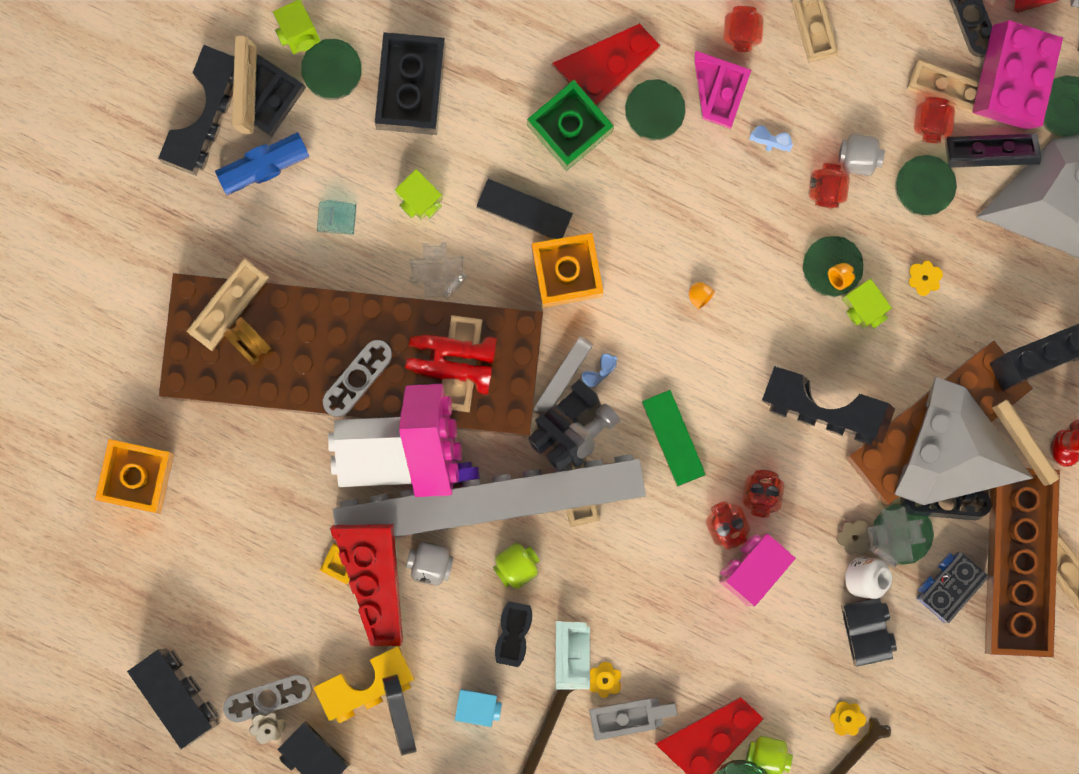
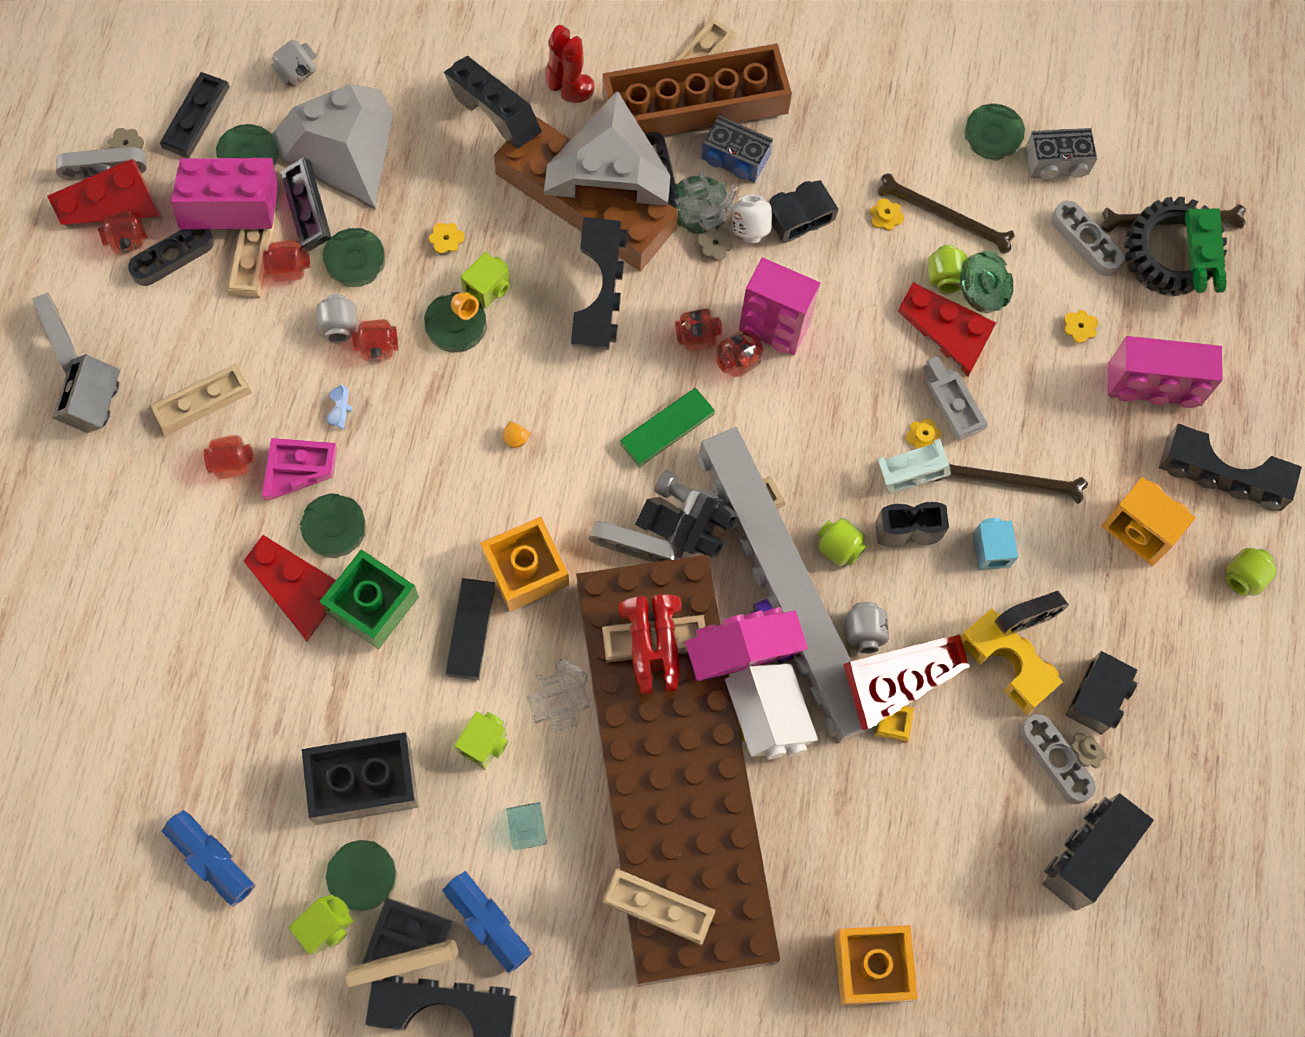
camera: 105 degrees left, 15 degrees down
(249, 338) = (694, 862): pearl gold wheel -> none
(344, 378) = (728, 741): light grey beam -> none
(607, 365) = (610, 508): light blue piece -> none
(1026, 442) = (586, 99): tan tile -> none

